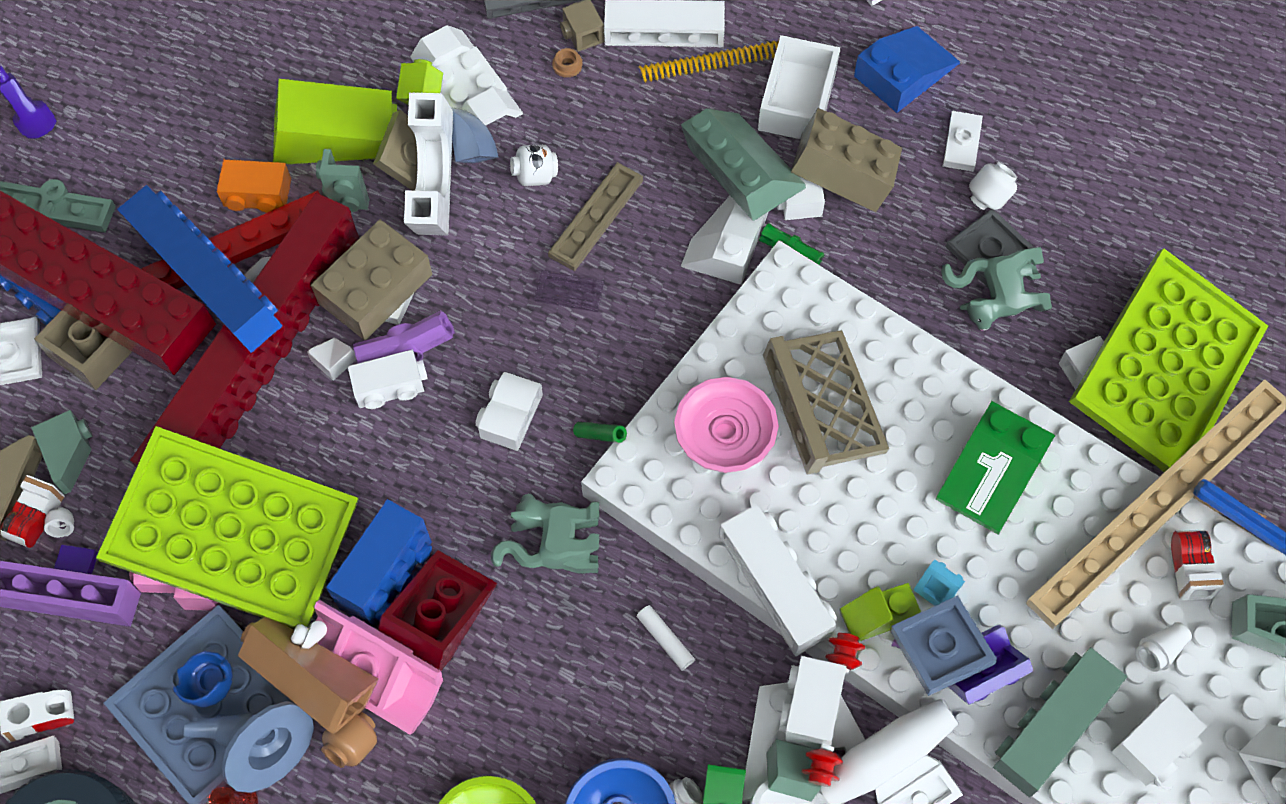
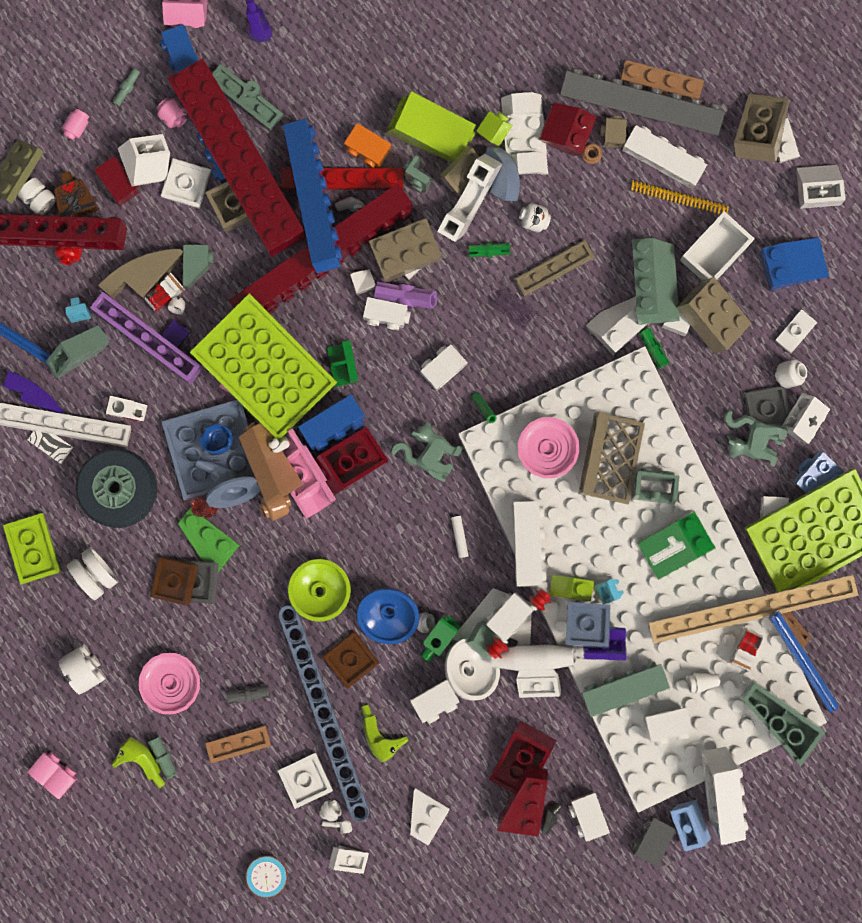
camera: 30 degrees right, 20 degrees up
(359, 477) = (343, 364): none -> green panel
(493, 233) = (489, 250): none -> green pin
(519, 44) = (567, 128): none -> dark red slope
(914, 403) = (656, 486): none -> sand green window
(1050, 225) = (805, 418): none -> white brick
(1111, 286) = (816, 472): none -> medium blue plate

